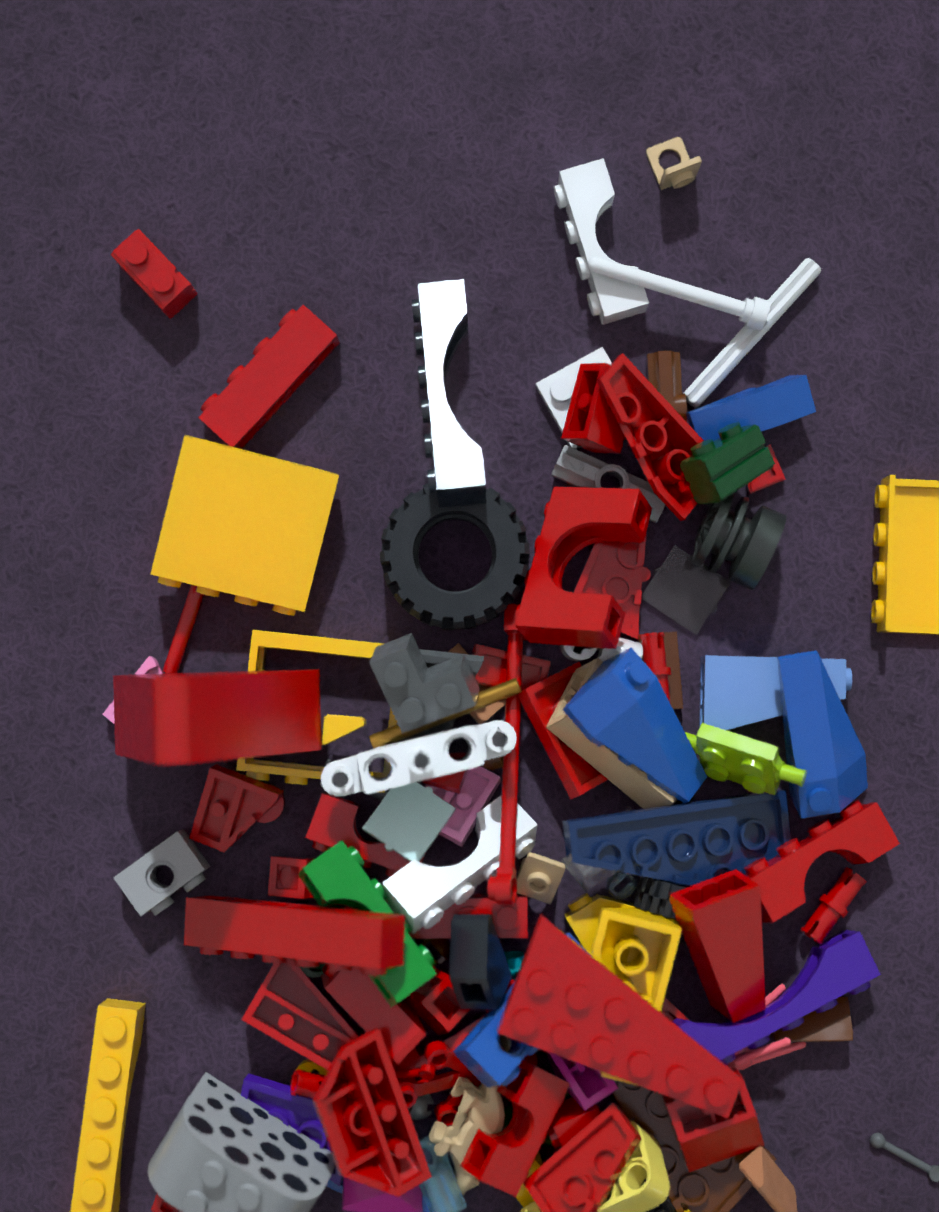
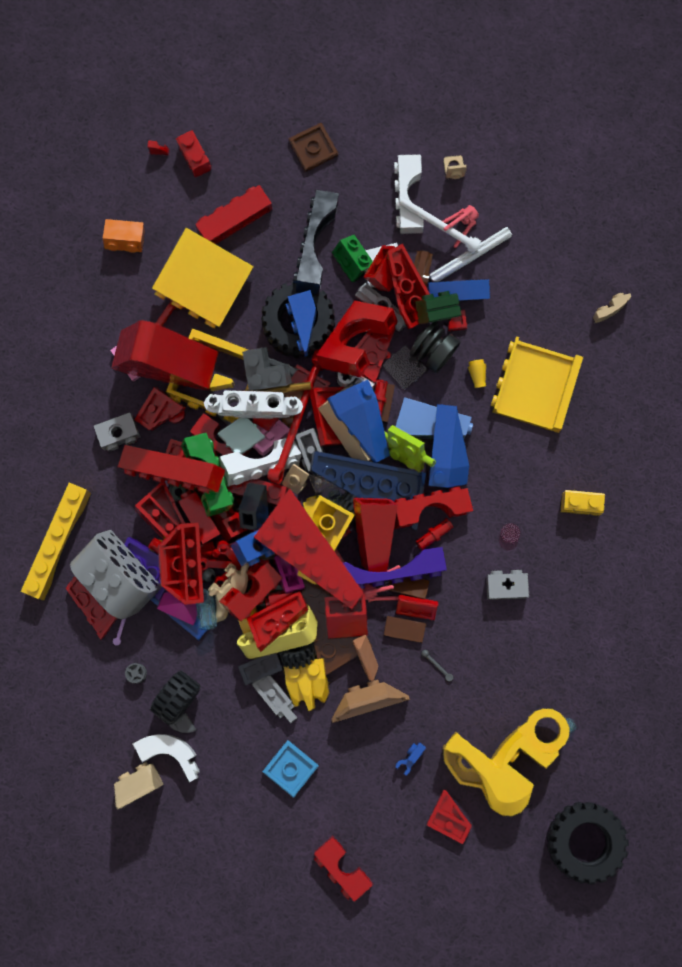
camera: 15 degrees right, 5 degrees down
(63, 478) = (123, 235): none -> orange brick
(73, 284) = (156, 149): none -> red tile
(385, 196) = (313, 147): none -> reddish brown tile
(468, 548) = (304, 315): none -> blue slope
(525, 400) = (352, 257): none -> green bracket
(549, 804) = (307, 443): none -> light grey brick
(724, 257) = (466, 216): none -> coral plant
(826, 1105) = (404, 629): none -> reddish brown tile
(830, 562) = (478, 372): none -> yellow cone
(840, 1058) = (417, 607): none -> red plate

